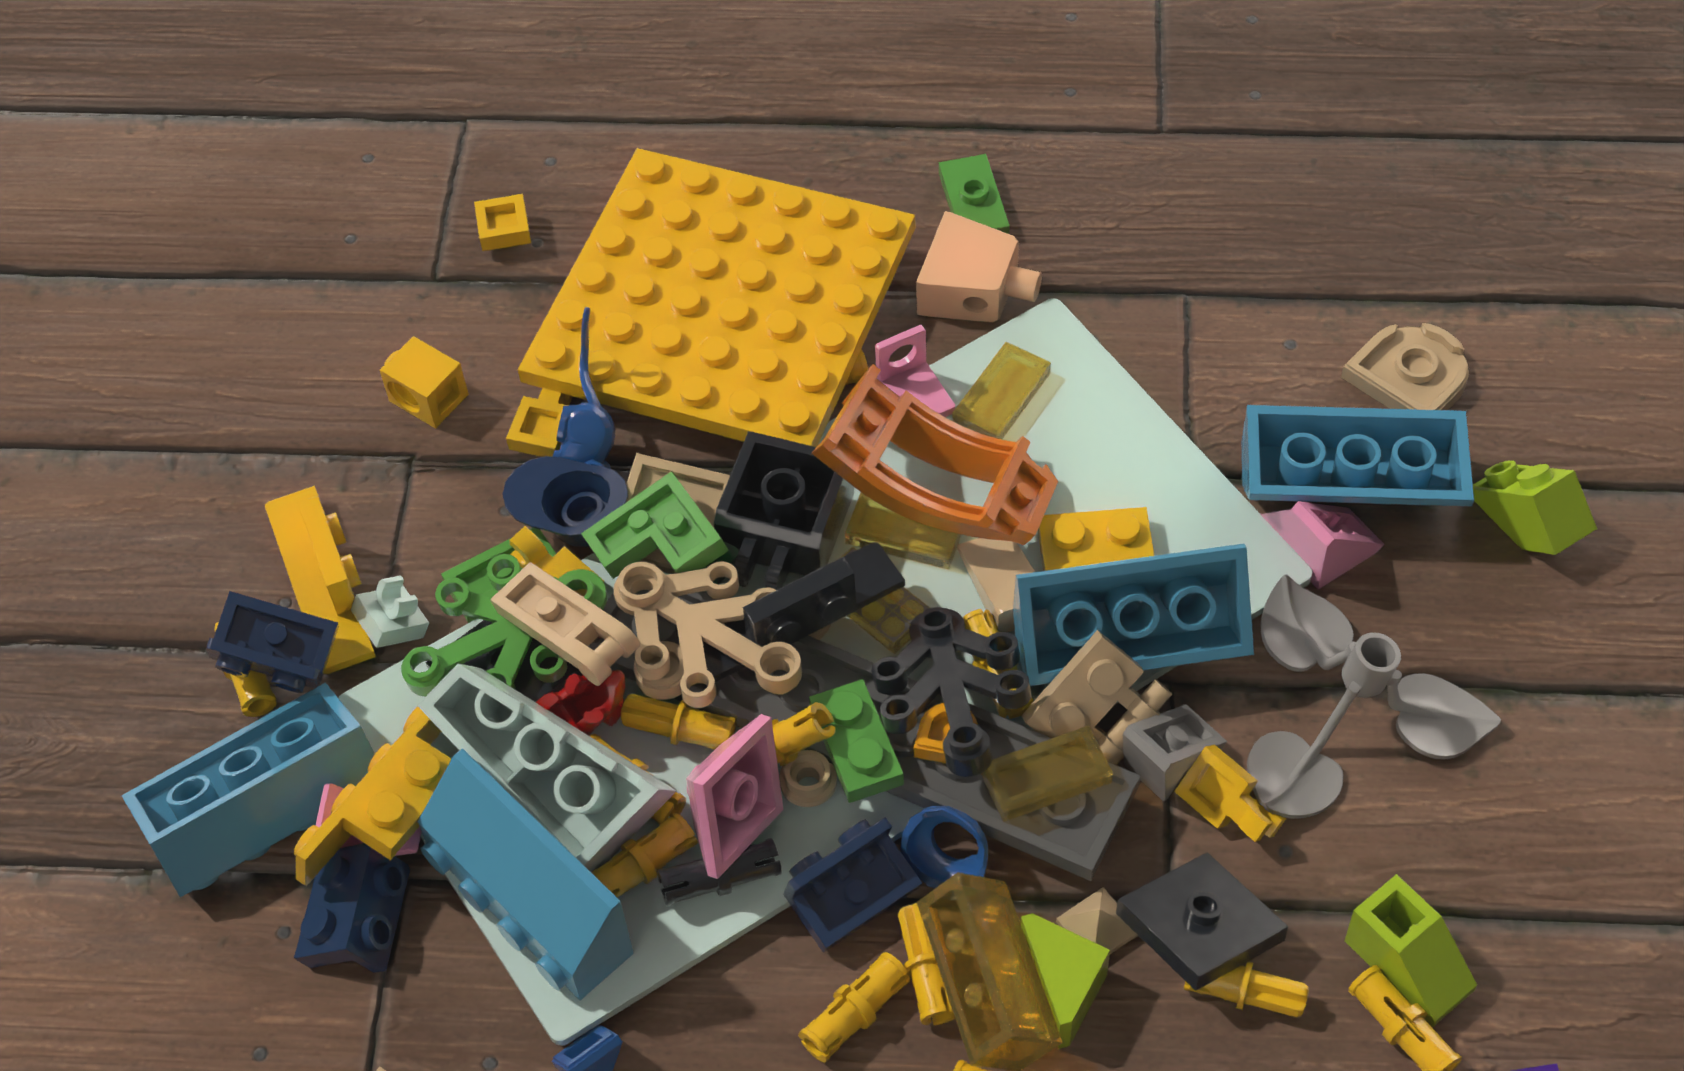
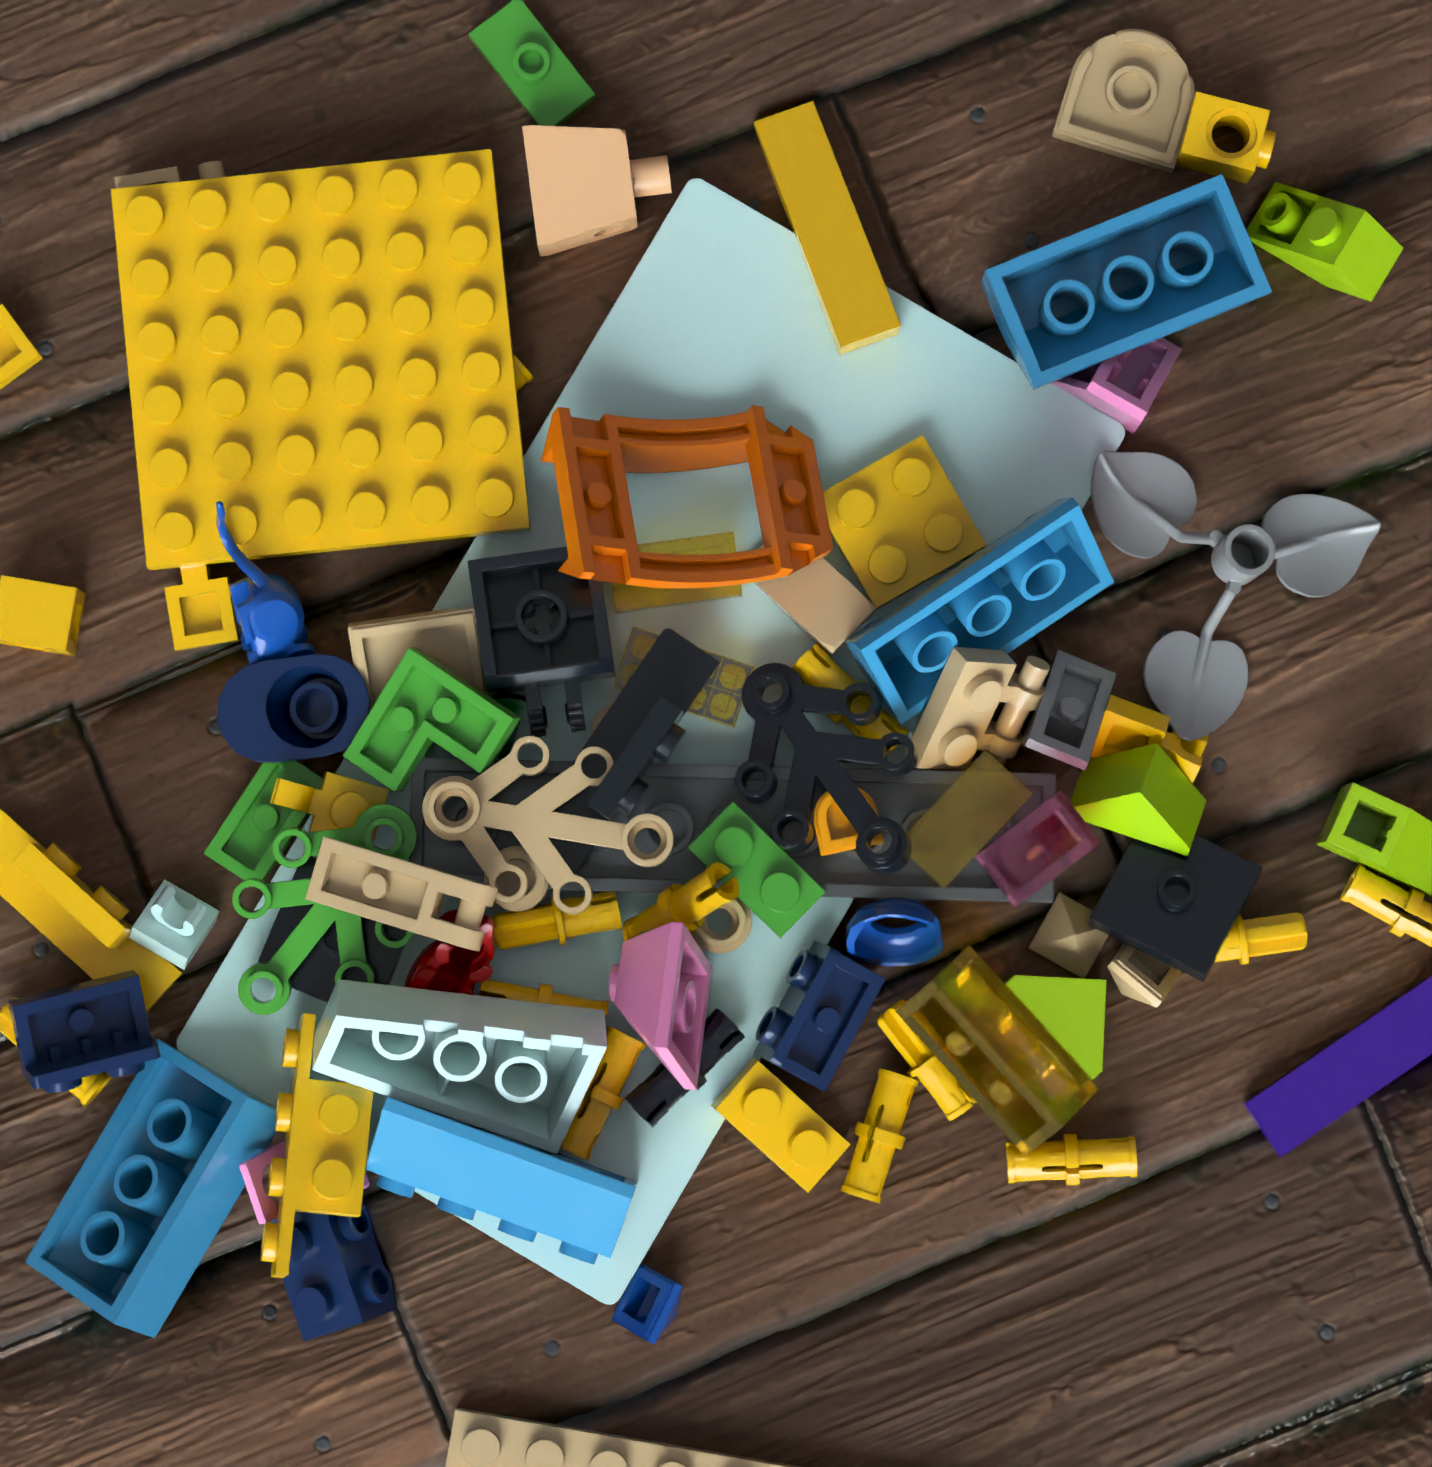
camera: 30 degrees left, 30 degrees up
(775, 960) = (780, 1124): none -> yellow plate
(912, 371) = (599, 384): bright pink bracket -> none
(1002, 391) = (696, 344): clear yellow tile -> none
(1101, 809) = (1038, 849): none -> clear pink slope
(1138, 366) = (827, 228): none -> yellow slope
(1144, 972) = (1142, 975): none -> tan slope
(1208, 833) = (1140, 797): none -> lime slope
(1488, 406) = (1201, 153): none -> yellow brick

